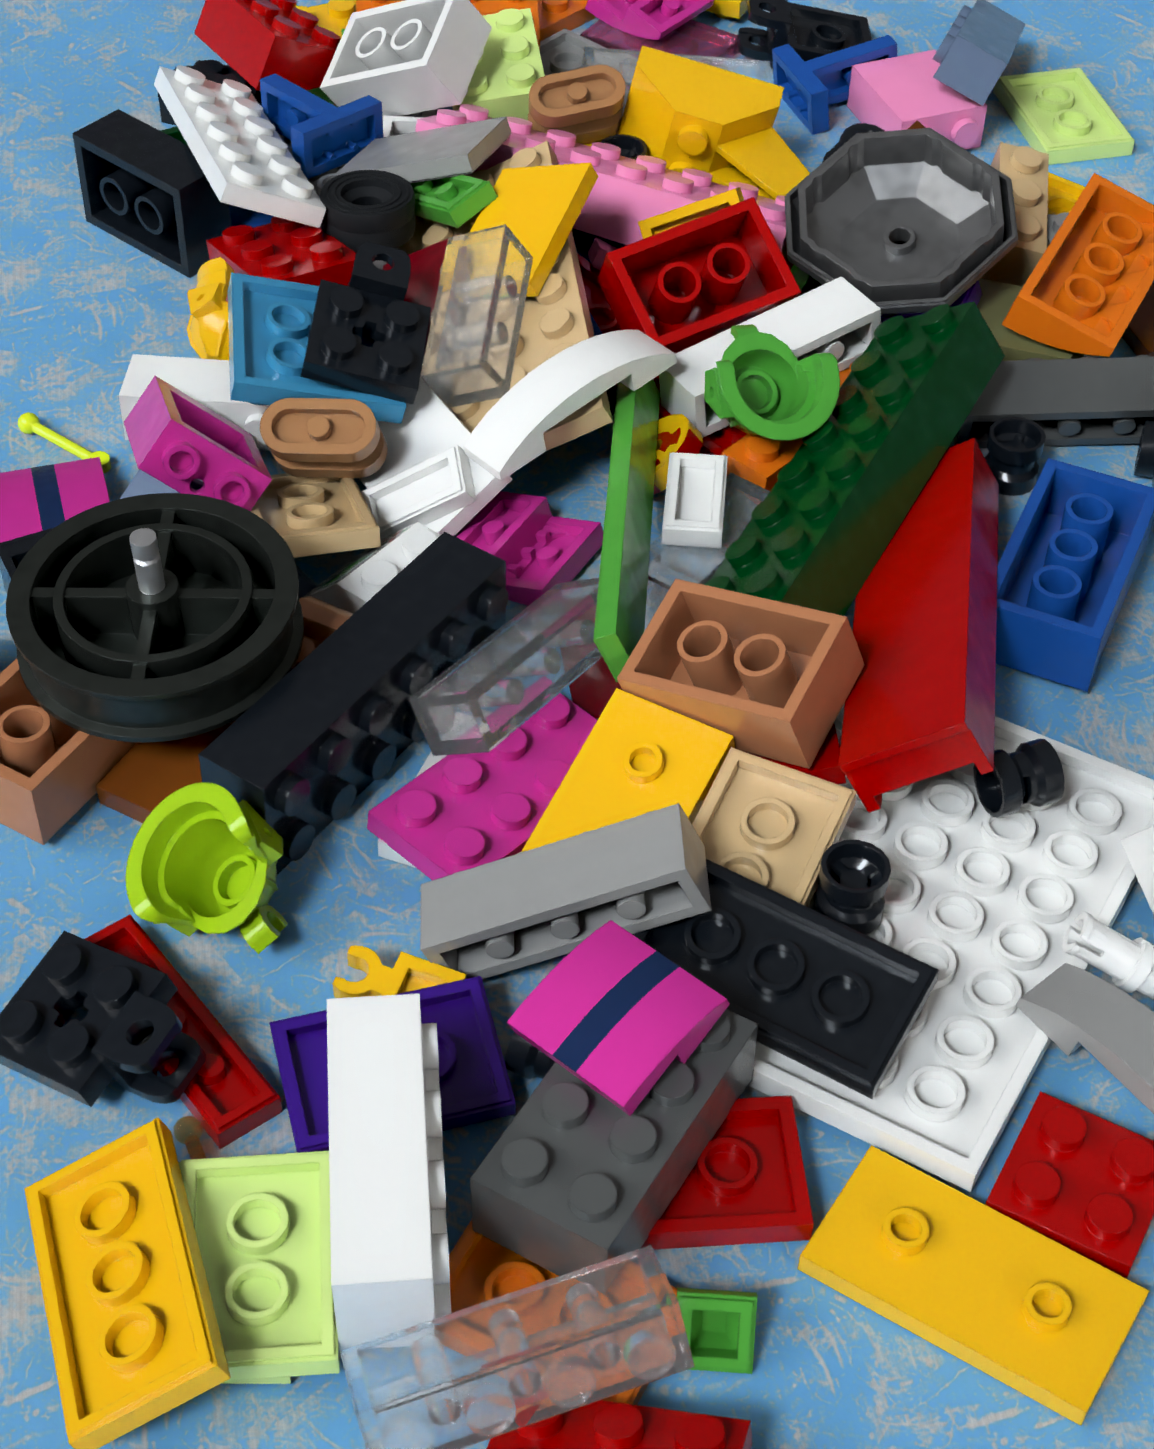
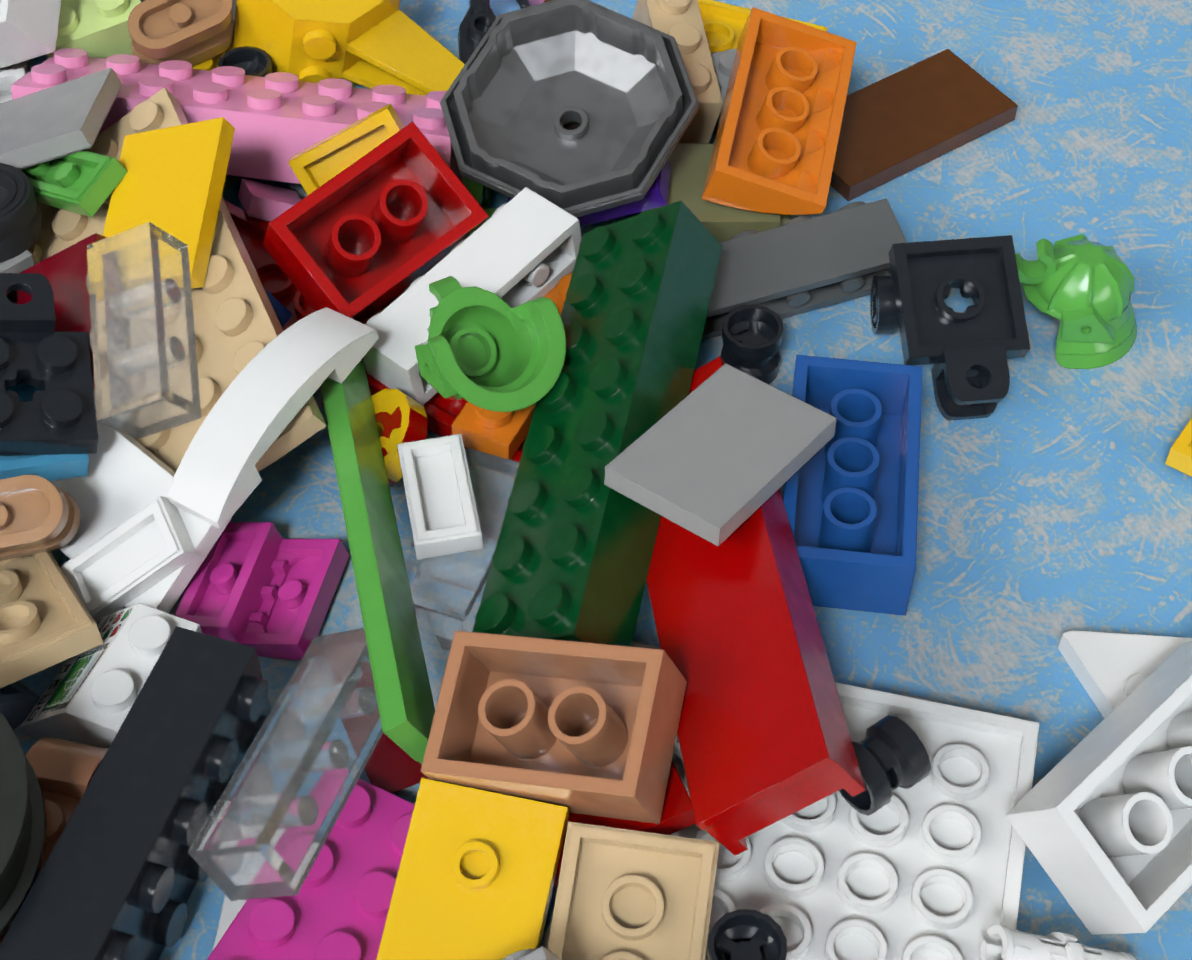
camera: 15 degrees left, 5 degrees up
(948, 499) = (720, 453): none -> light grey tile

